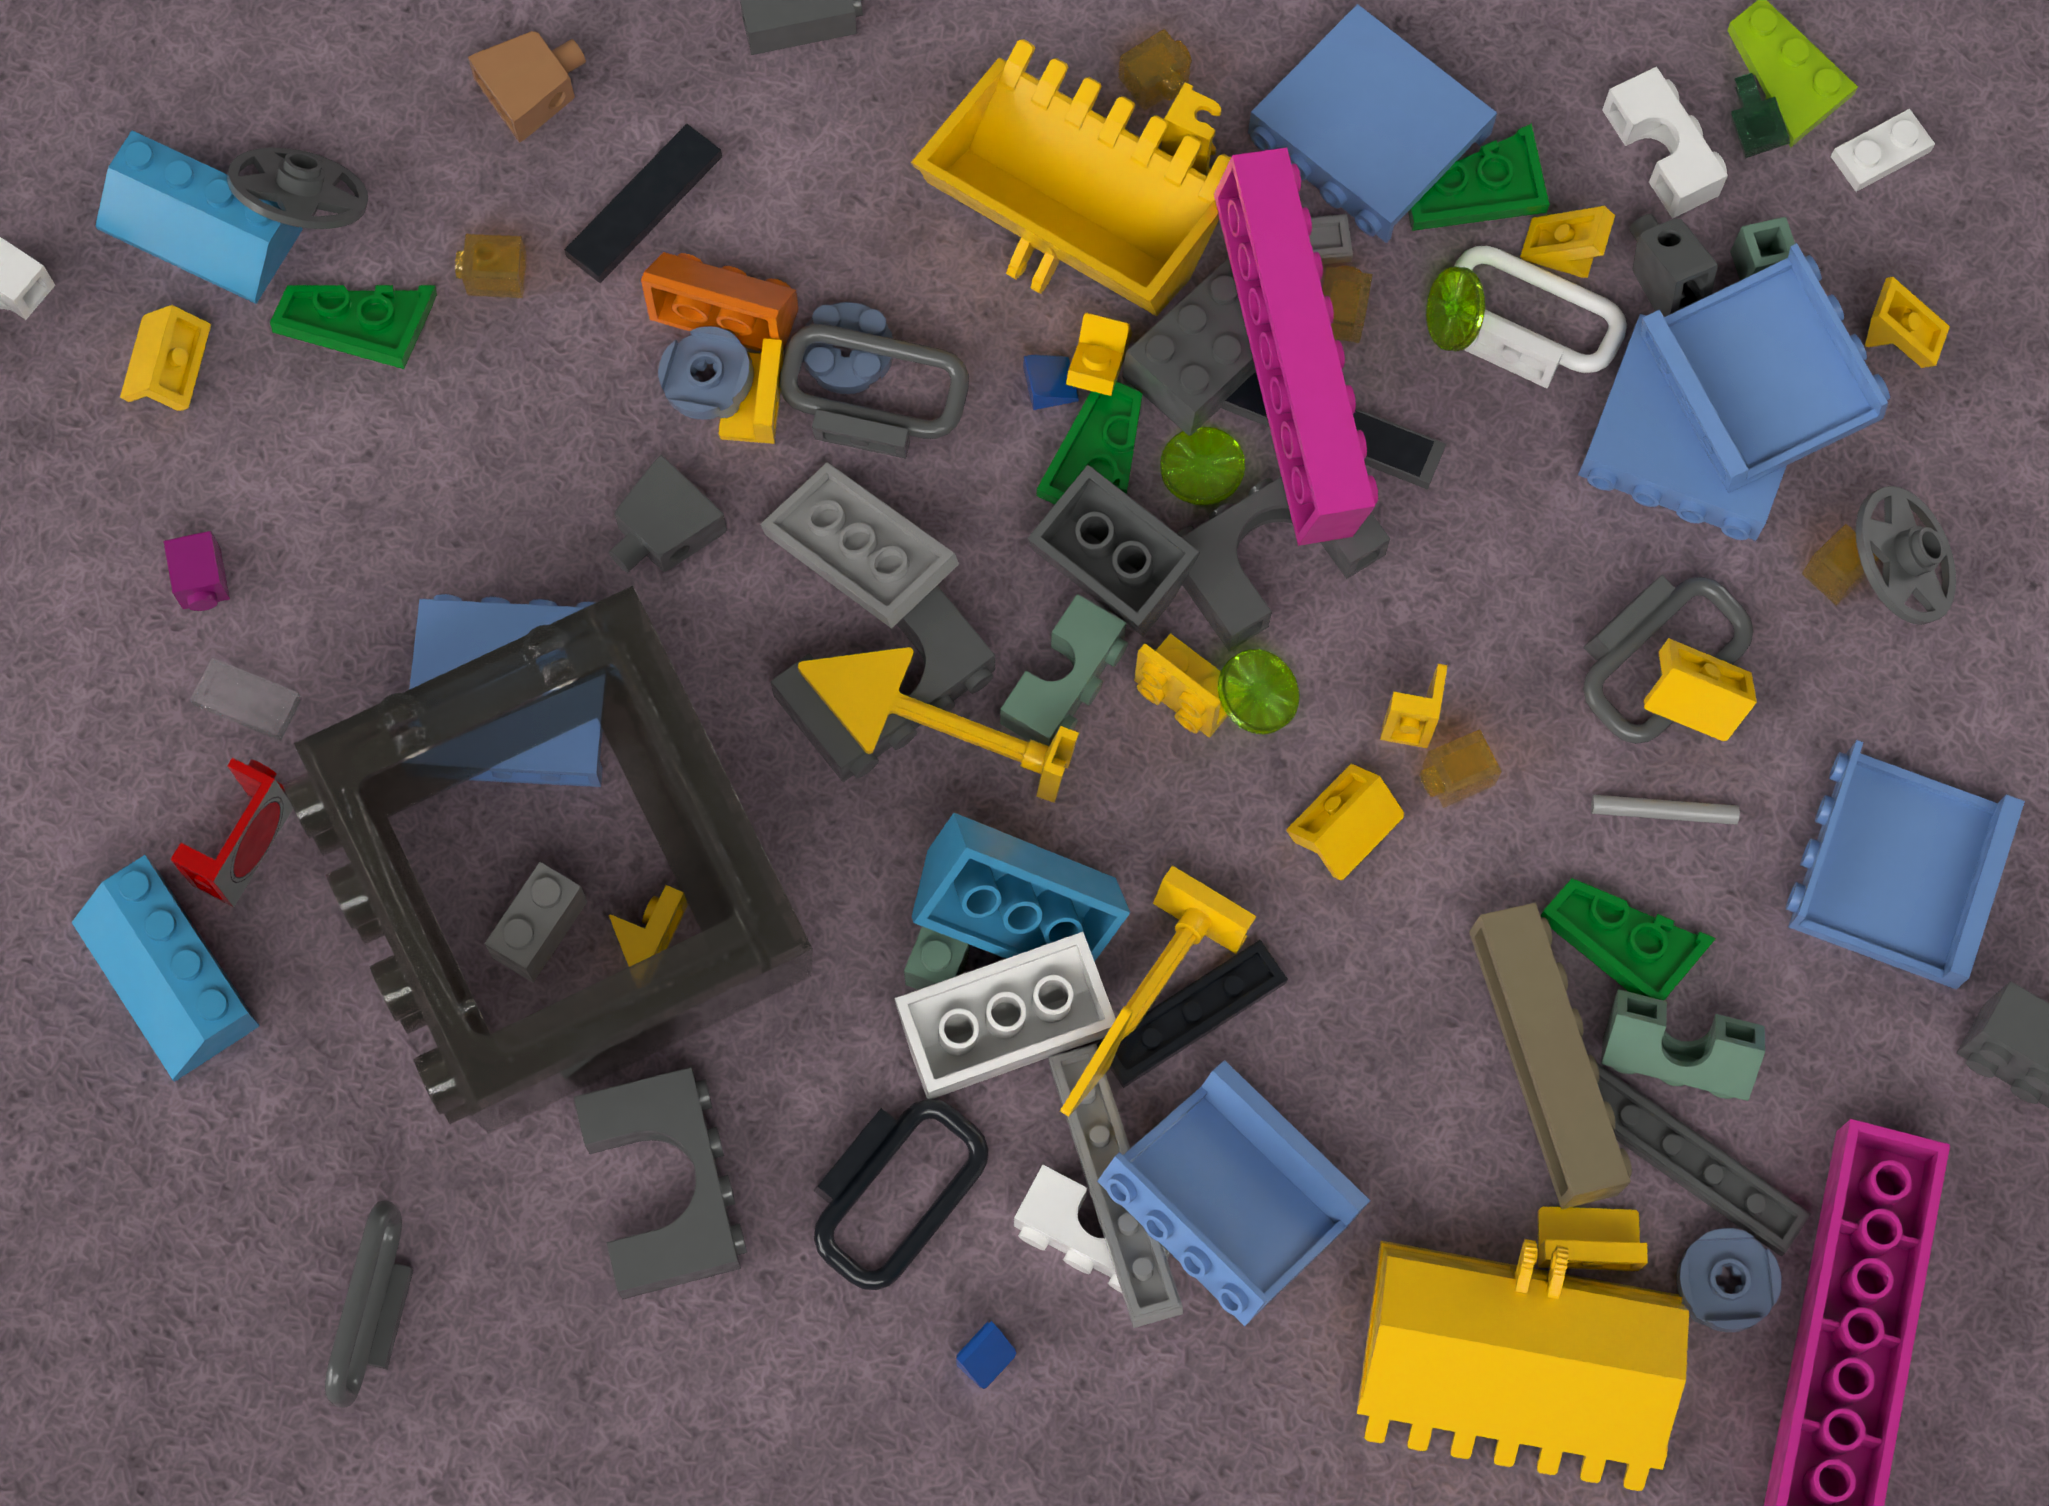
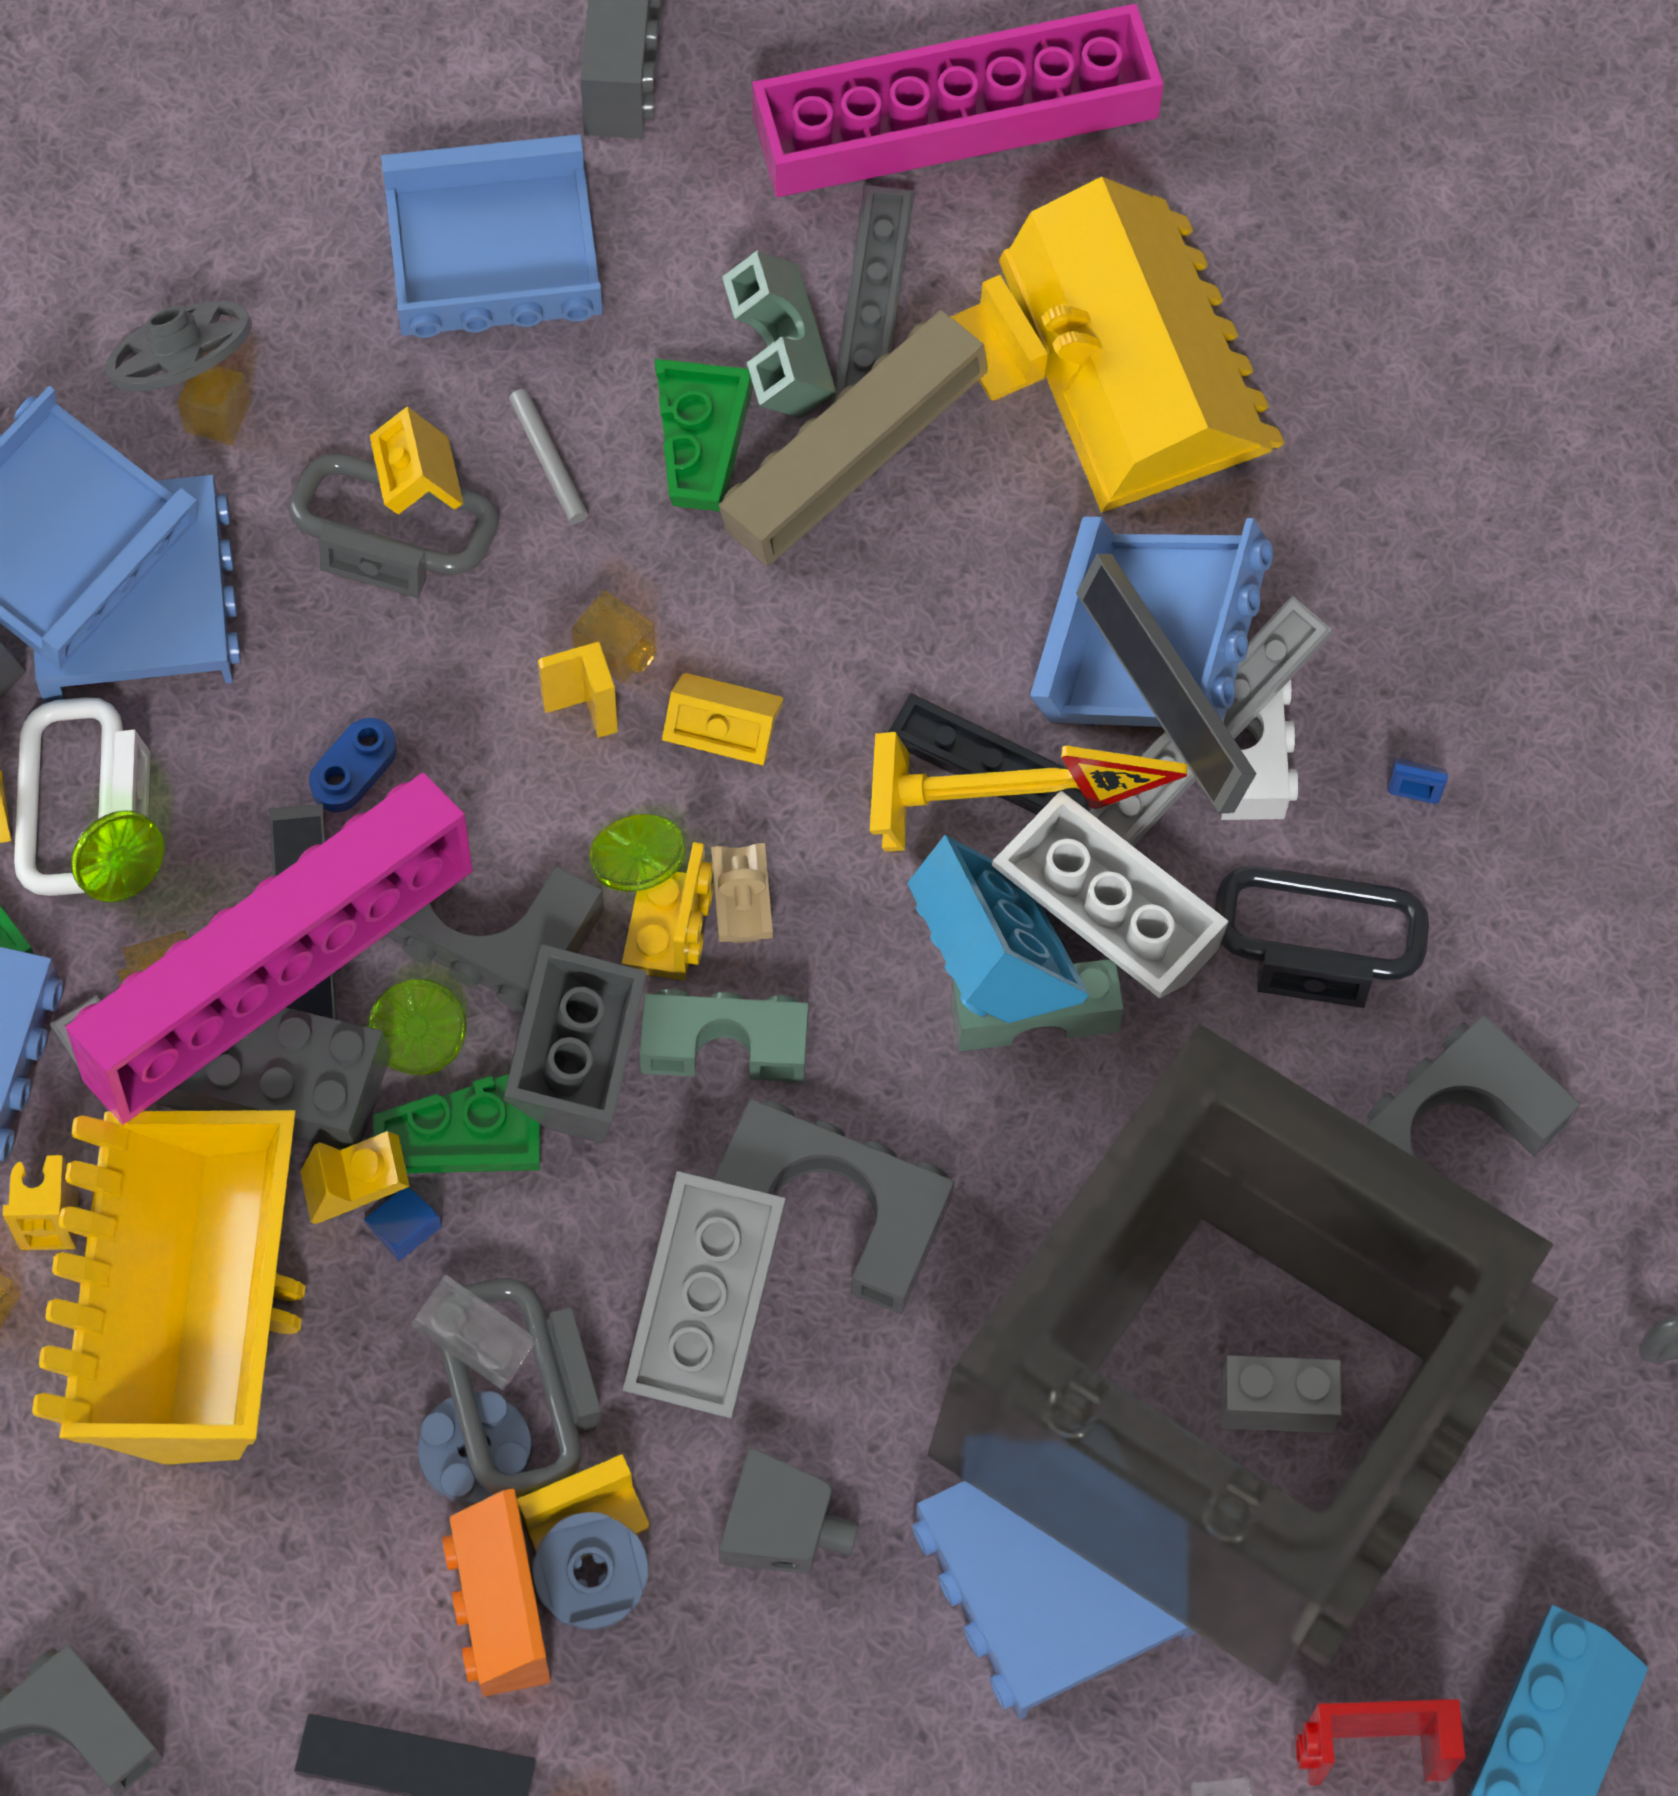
camera: 120 degrees left, 5 degrees down
(661, 922) = (1238, 1276): yellow slope -> none
(866, 691) = (864, 1193): yellow piece -> none
(920, 365) = (474, 1332): none -> clear plate
(1154, 1143) = (1166, 684): none -> tile
(1176, 745) = (742, 893): none -> tan hips
(1453, 522) = (356, 763): none -> blue plate
(1747, 1258) = (966, 247): sand blue plate -> none

